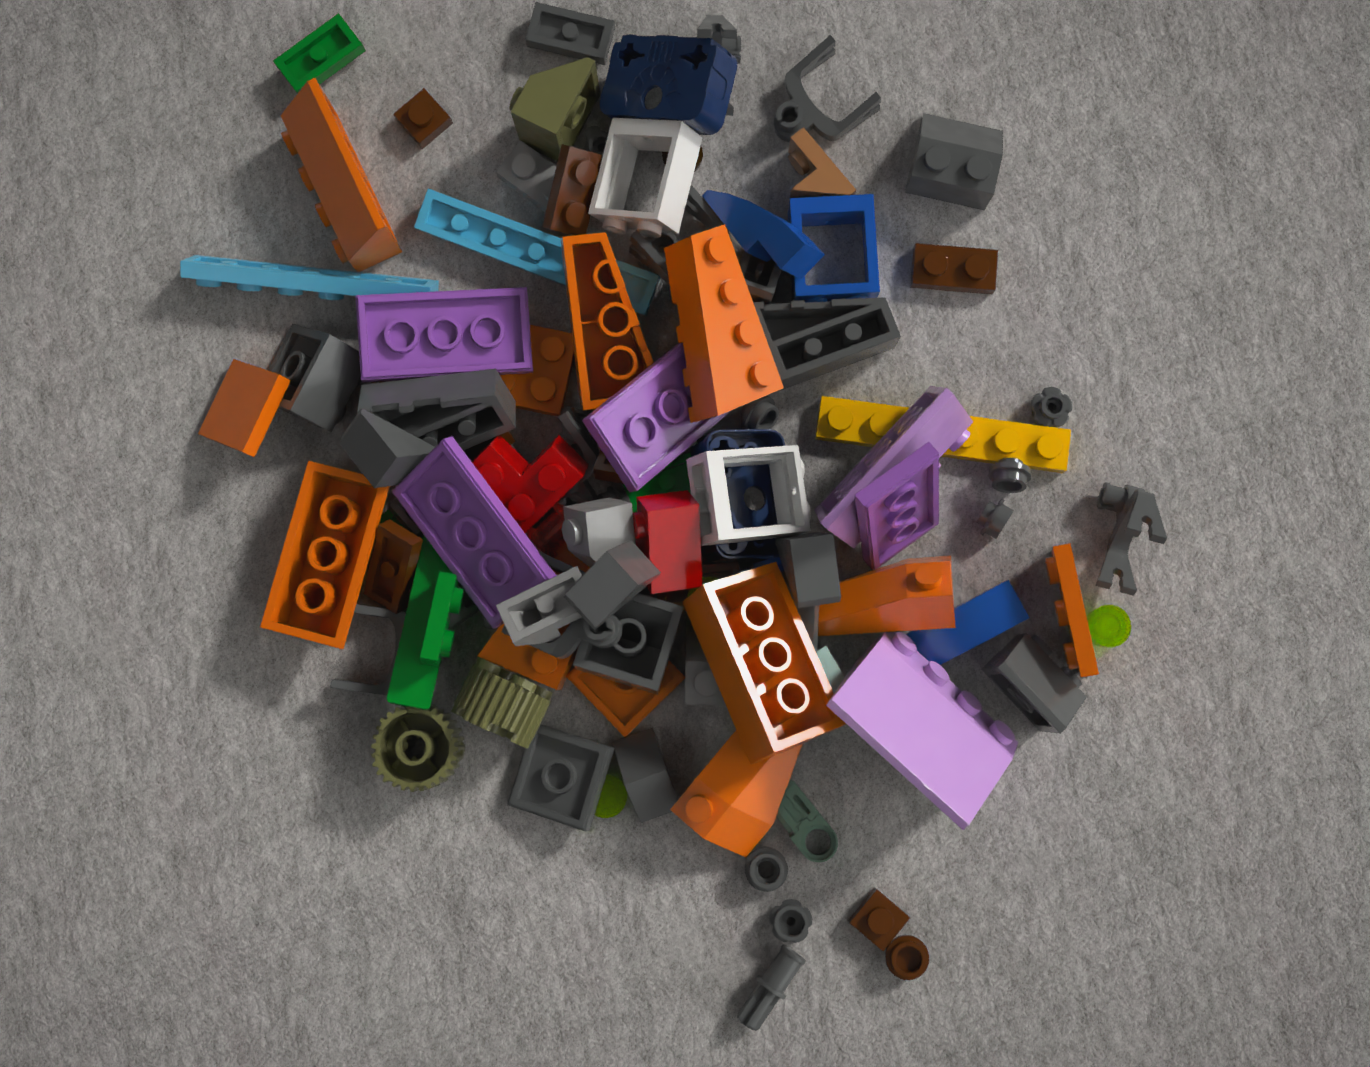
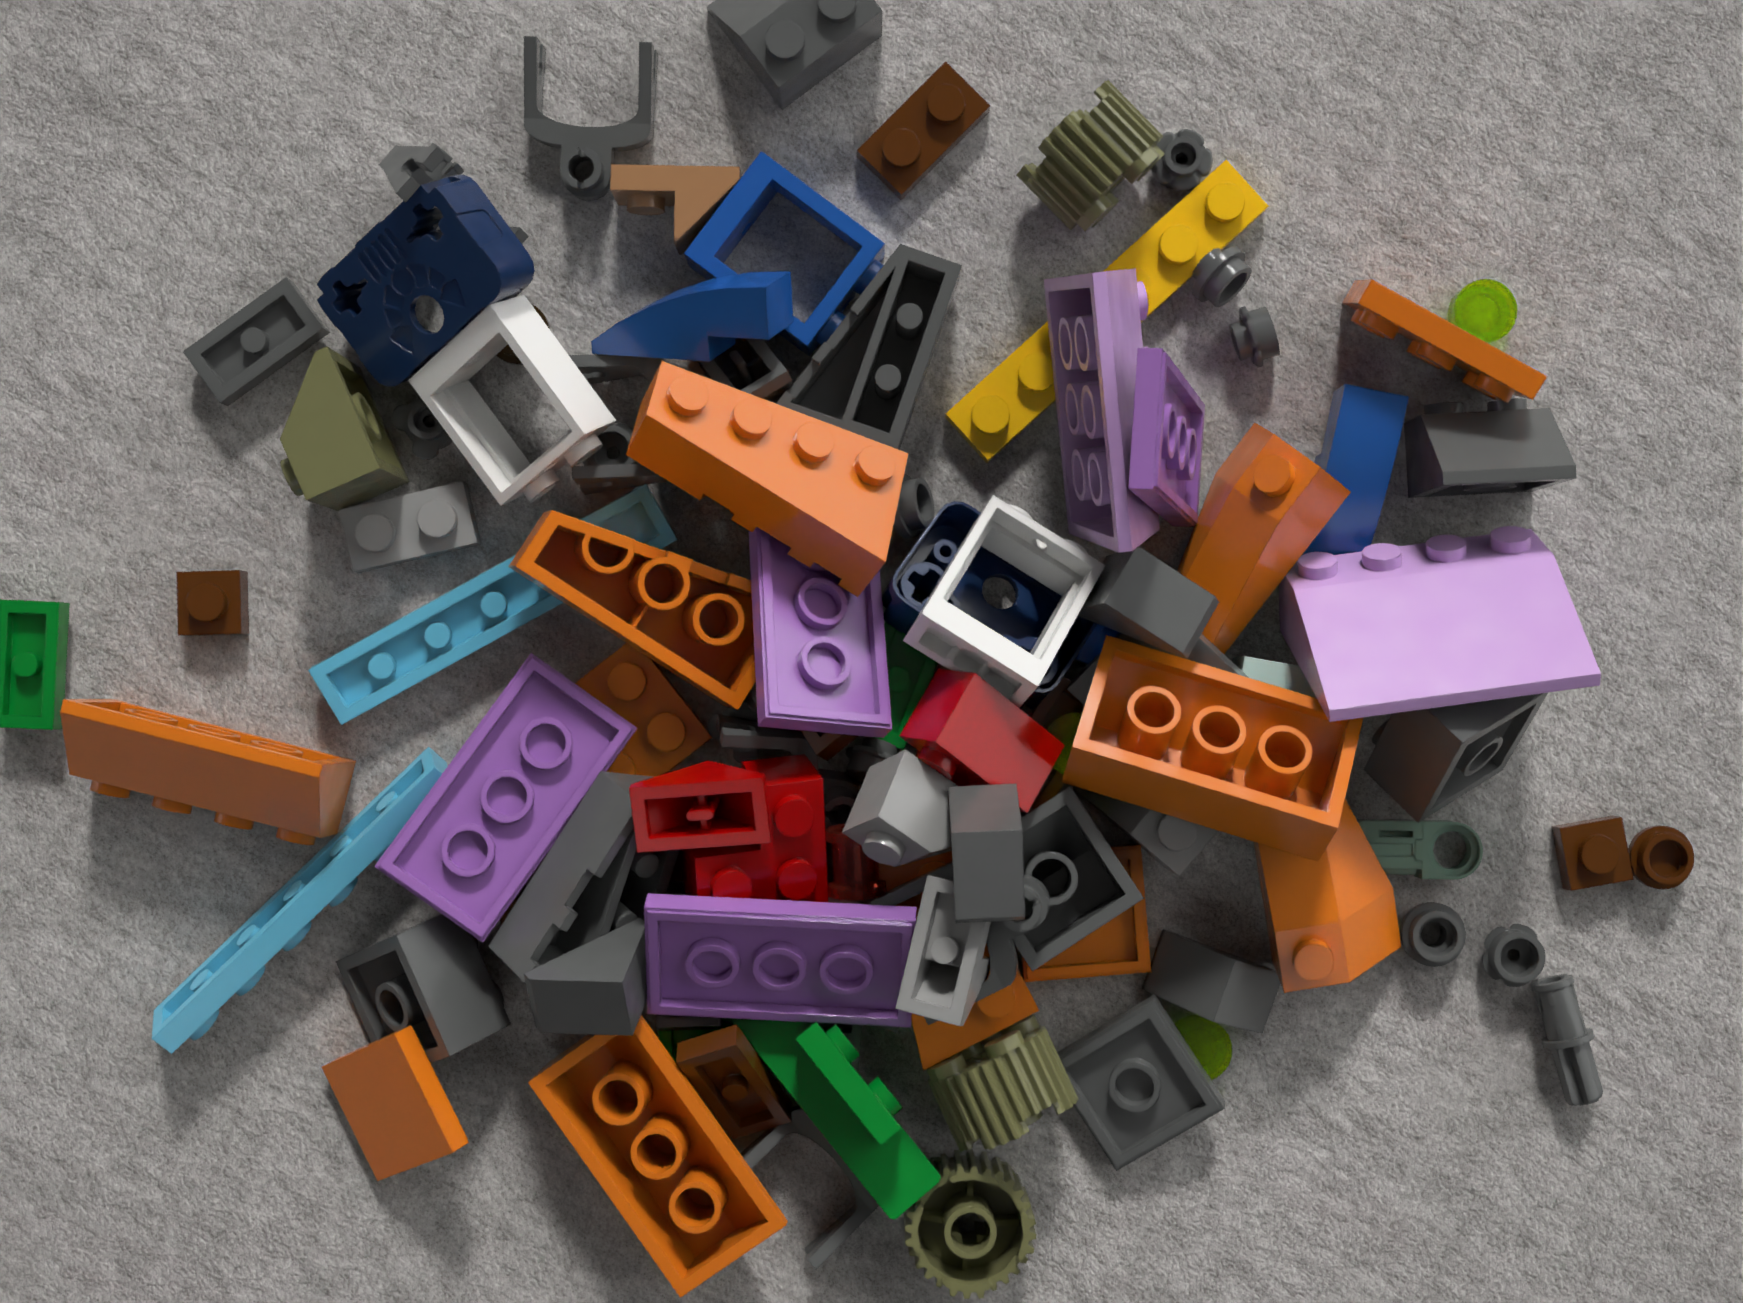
camera: 55 degrees left, 5 degrees up
(516, 427) = (700, 808): none -> red slope
(572, 191) = (457, 501): reddish brown plate -> none
(870, 791) = (1447, 751): none -> dark grey slope
(1011, 359) = (1091, 157): none -> olive brick
(1132, 509) = (1388, 176): dark grey piece -> none

